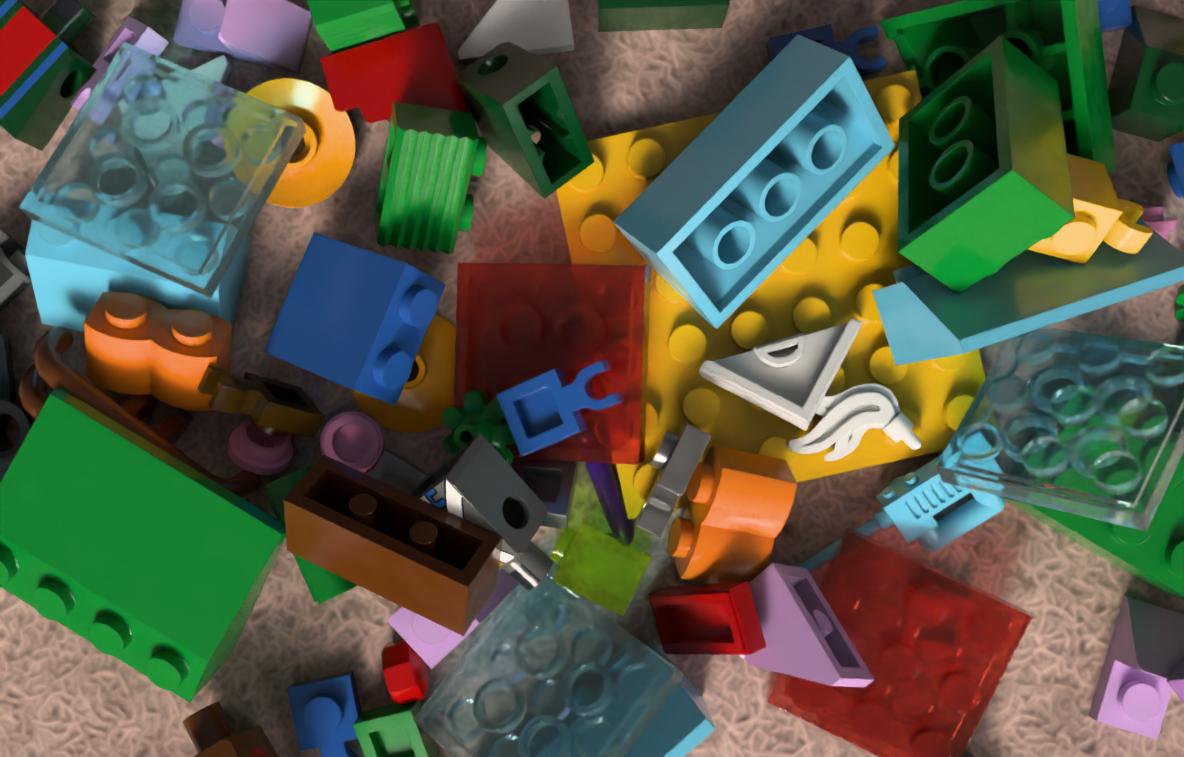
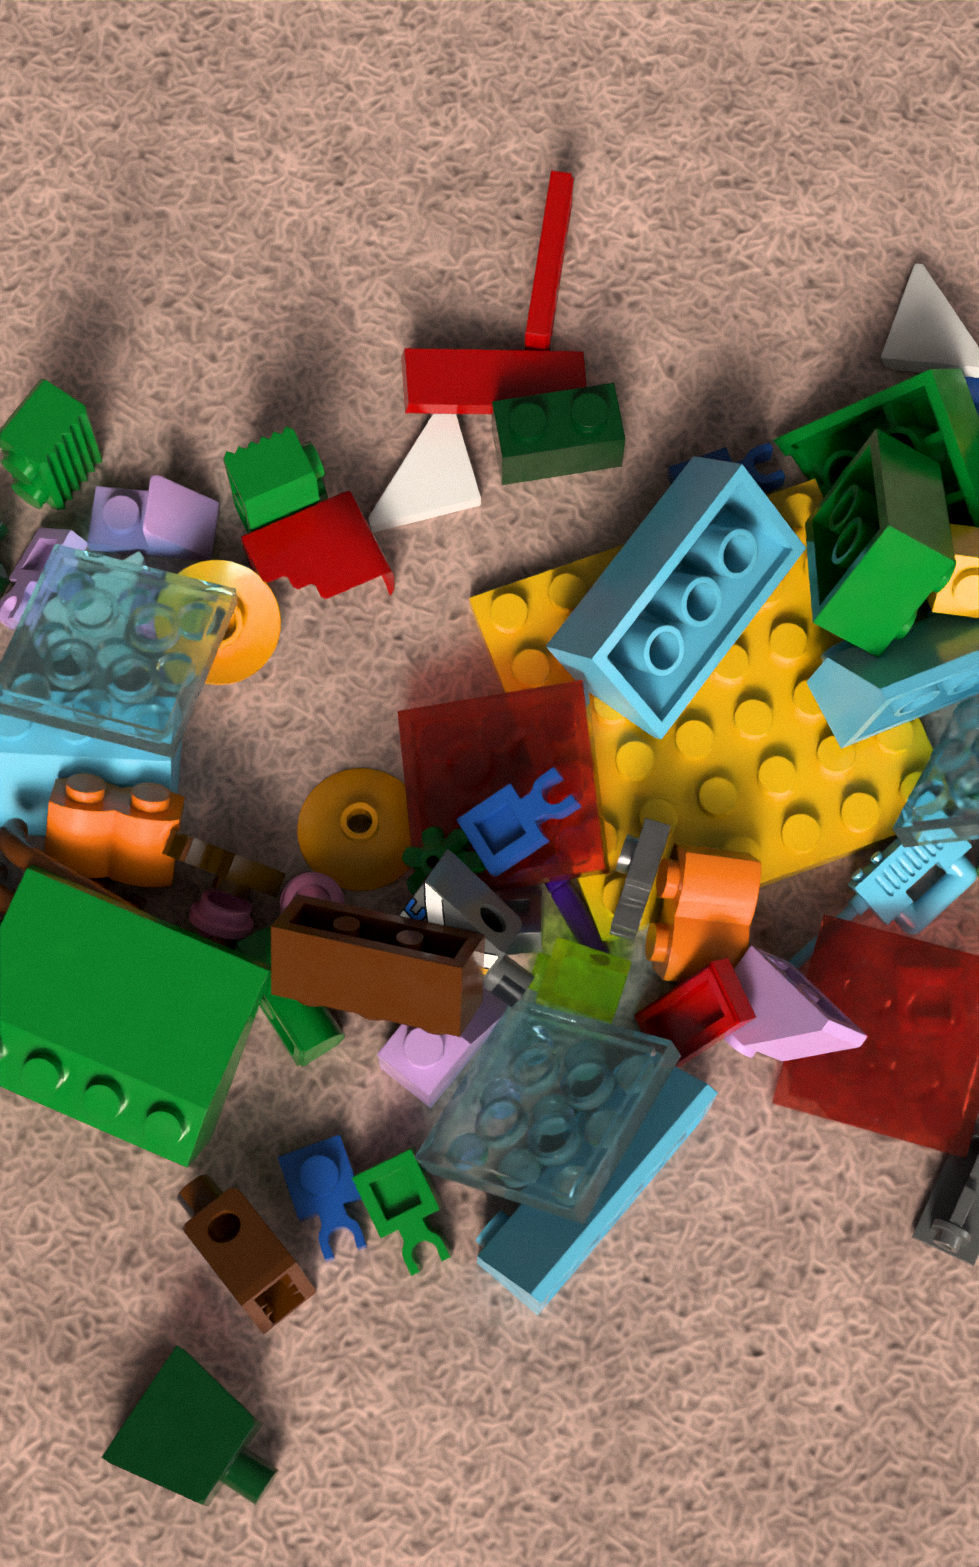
camera: 10 degrees left, 15 degrees down
(355, 317) = (305, 772): blue brick -> none
(405, 672) = (399, 1118): red tile -> none
(427, 178) = (359, 633): green brick -> none
(515, 97) = (447, 564): dark green torso -> none
(786, 374) = (735, 771): white tile -> none
(850, 416) = (803, 806): white piece -> none

